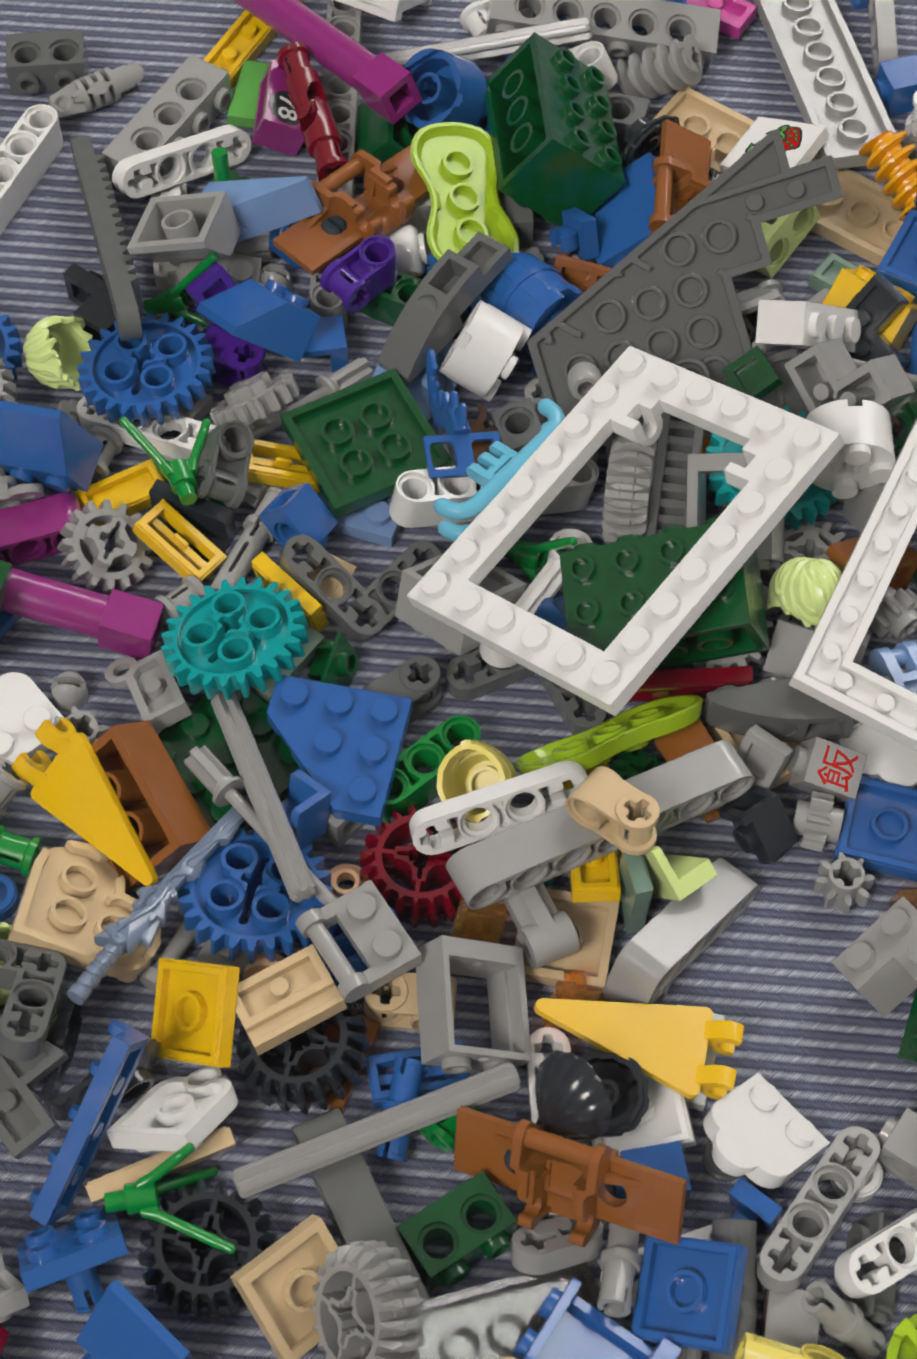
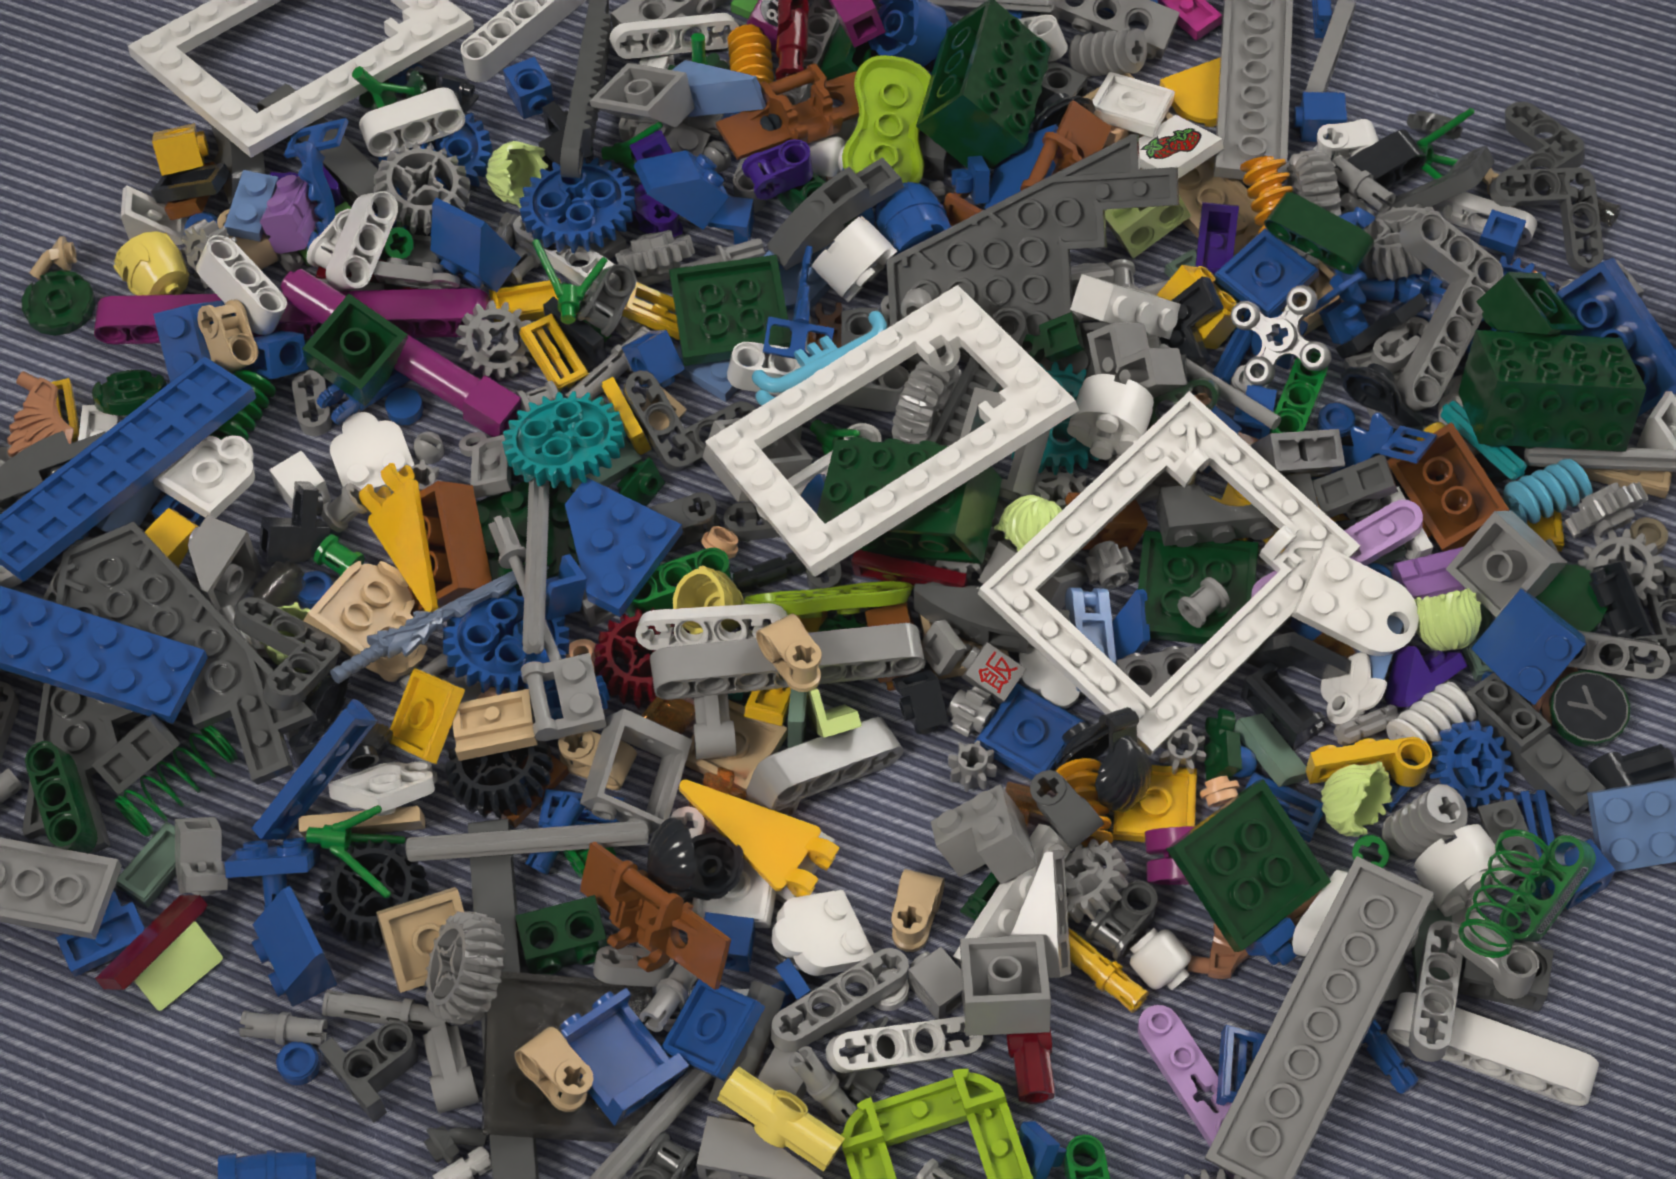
camera: 20 degrees right, 0 degrees up
(23, 650) = (404, 406): none -> blue tile
(35, 257) = (528, 87): none -> blue brick
(270, 156) = (751, 52): none -> light orange piece
(453, 703) = (722, 539): none -> light nougat plate
(524, 723) = (768, 572): none -> black axle
(712, 114) = (1132, 104): none -> white tile
(762, 91) = (1196, 92): none -> yellow tile
(850, 1063) = (915, 905): none -> tan piece
(861, 228) = (1216, 235): none -> dark purple slope

